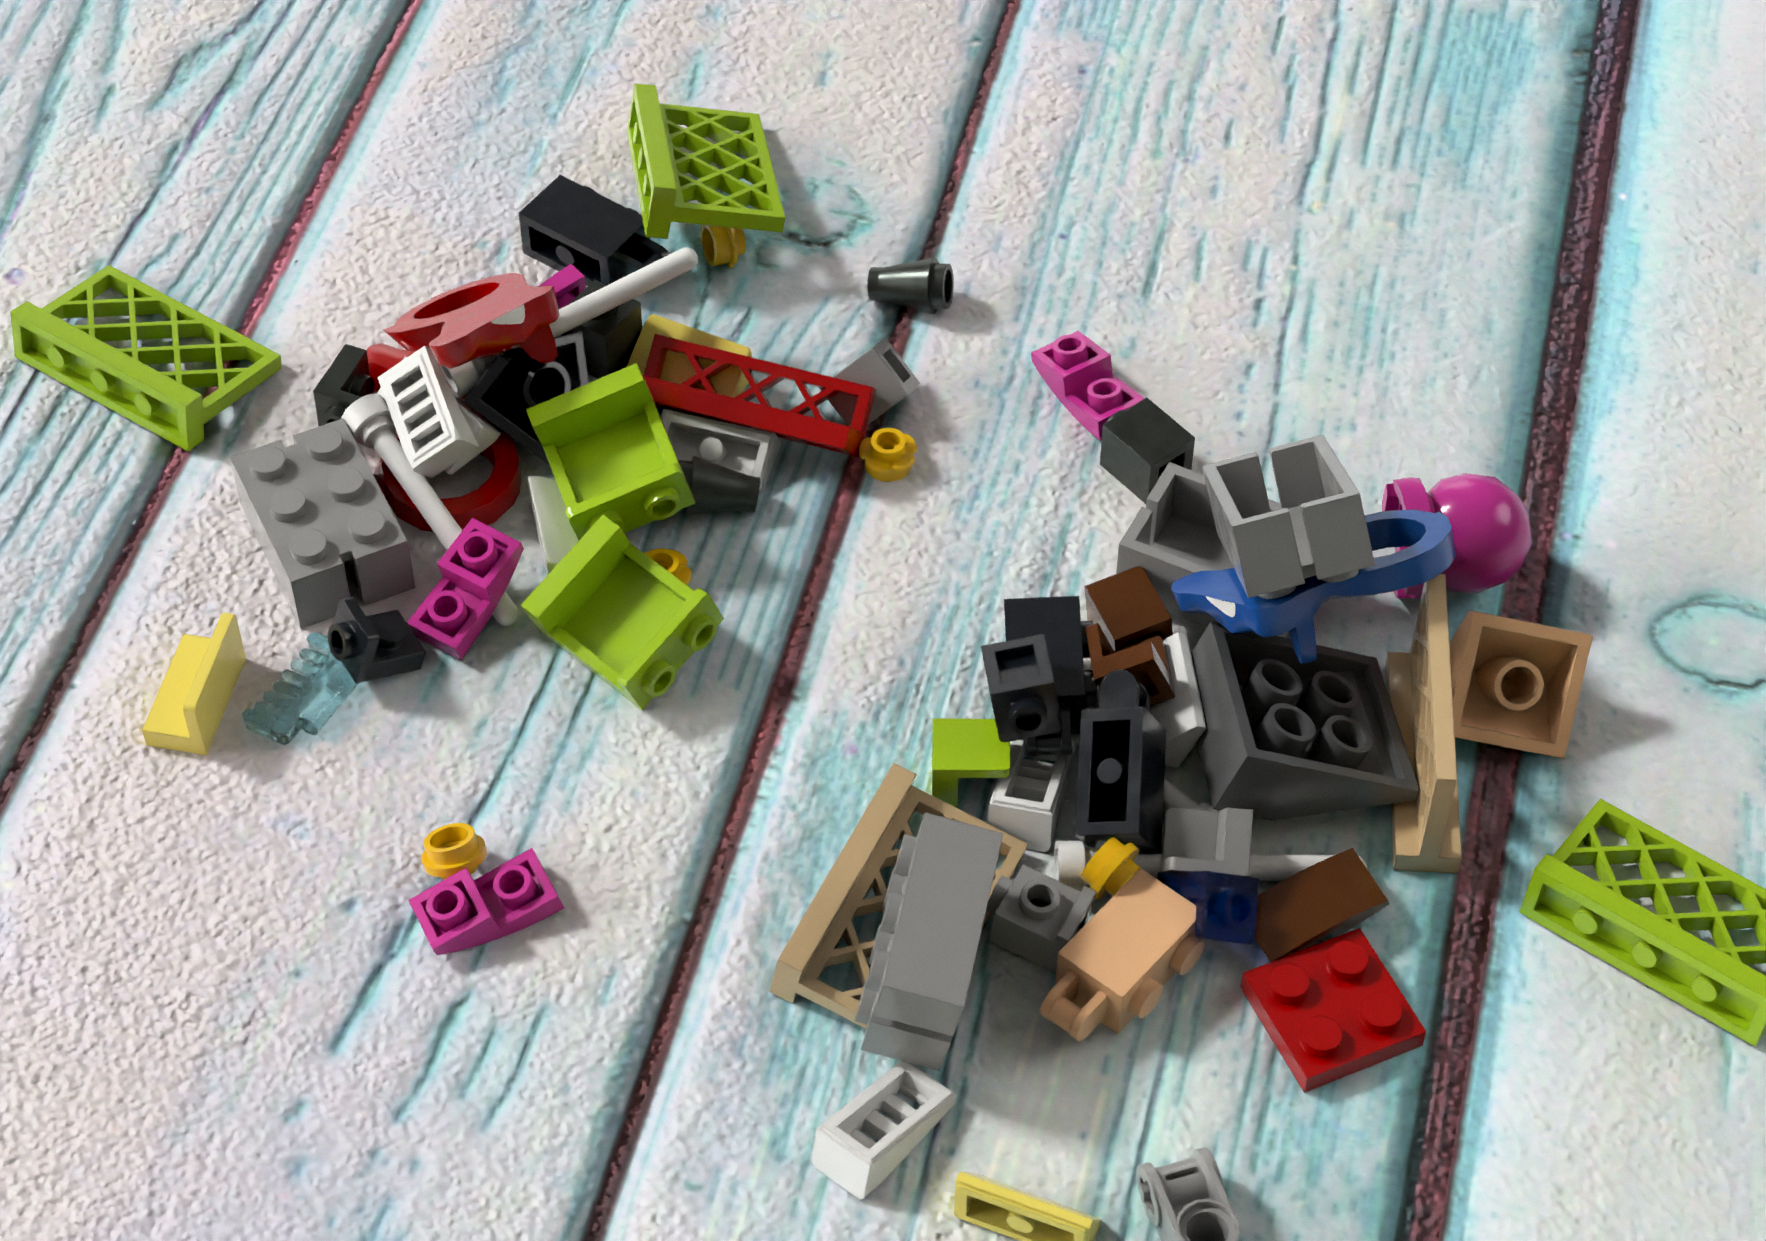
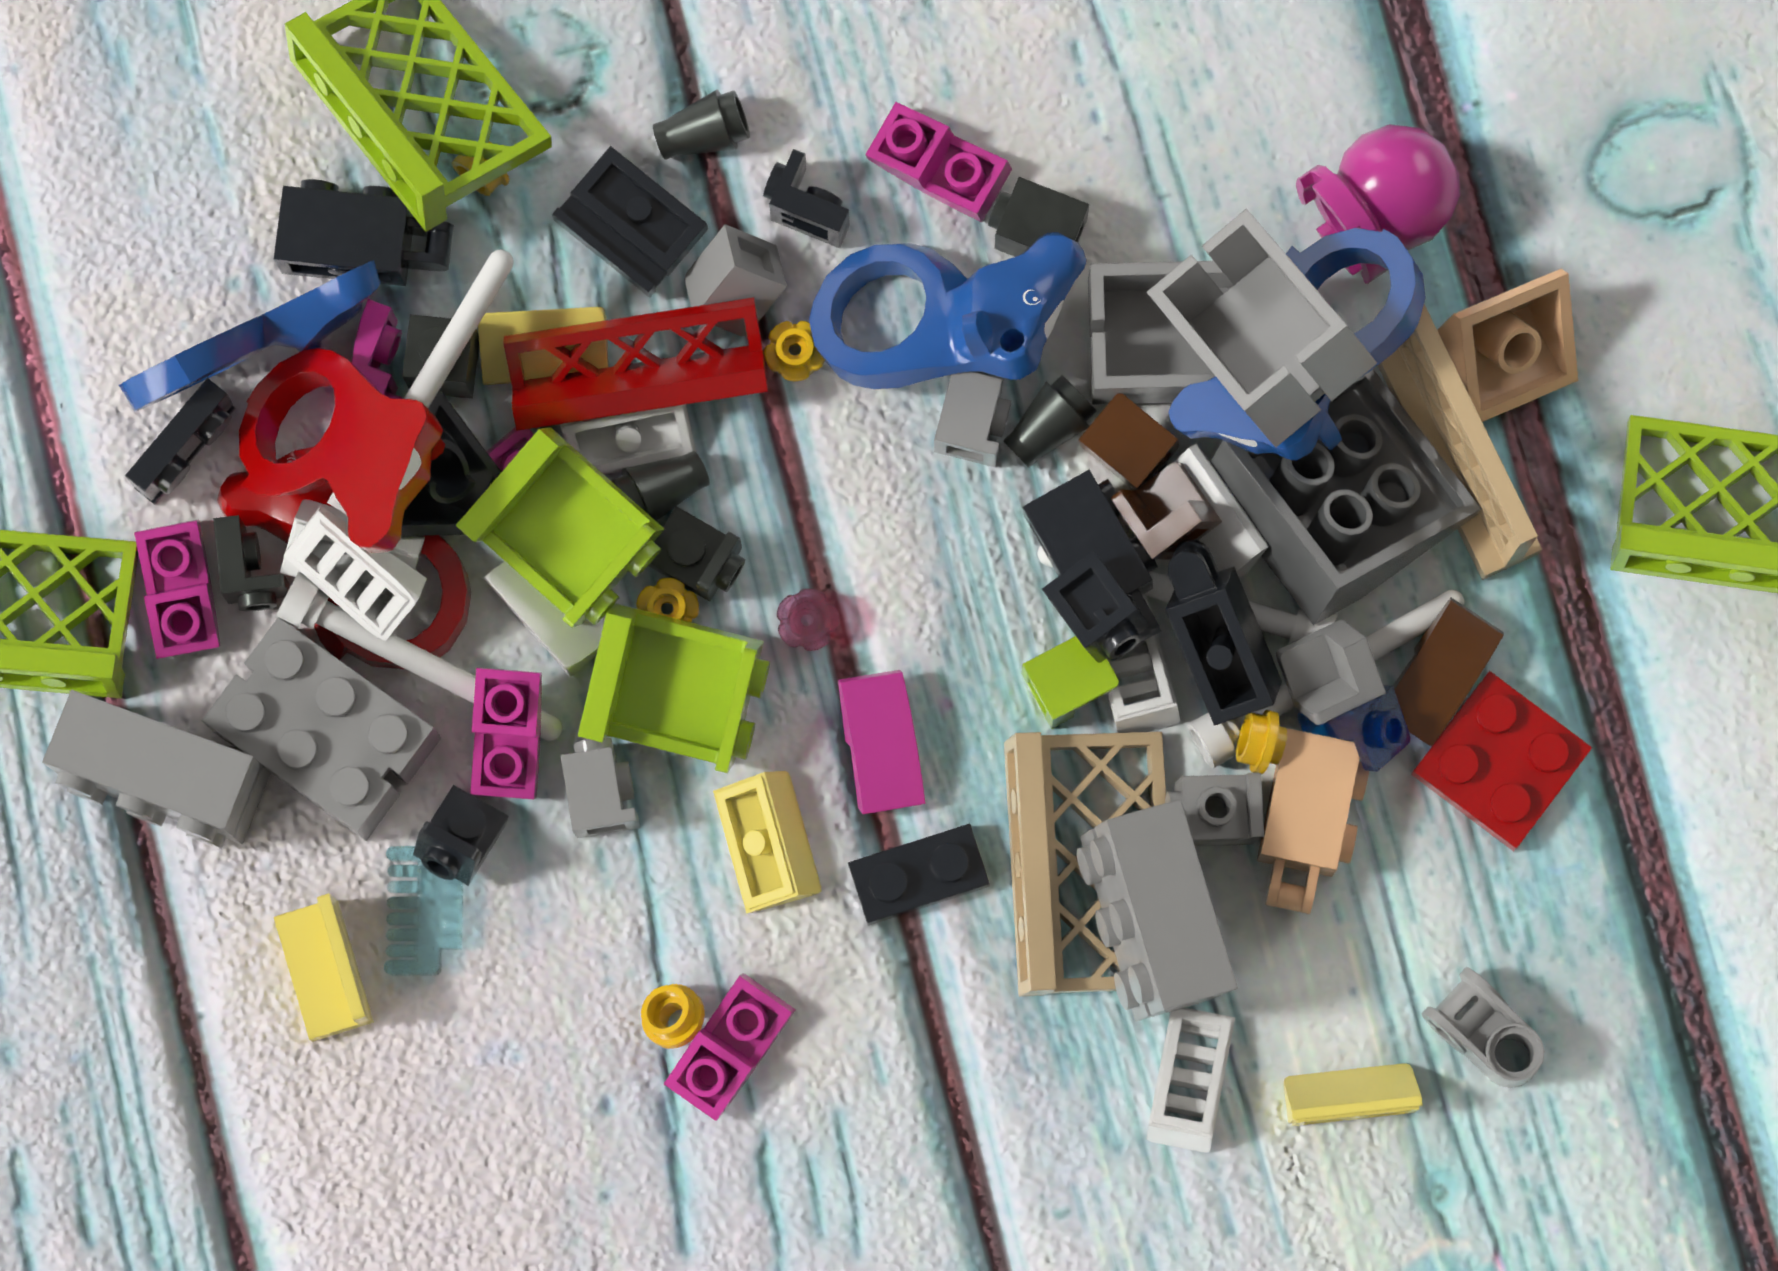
camera: 25 degrees left, 30 degrees up
(171, 478) = (155, 770): none -> light grey piece
(286, 399) = (178, 589): none -> dark pink slope
(359, 295) = (170, 454): none -> black plate
(475, 247) = (295, 324): none -> blue animal
(509, 664) = (597, 789): none -> light grey brick
(630, 772) = (767, 840): none -> light yellow slope
(713, 548) = (698, 554): none -> pearl dark grey bracket
(742, 854) = (918, 874): none -> black plate
(772, 628) = (807, 603): none -> clear pink plate
(774, 737) = (881, 741): none -> dark pink slope
(813, 317) = (630, 221): none -> black plate
(959, 361) = (809, 212): none -> black bracket
(1004, 547) = (971, 416): none -> light grey brick
(1041, 467) = (973, 324): none -> blue animal
(1069, 575) = (1050, 421): none -> pearl dark grey cone

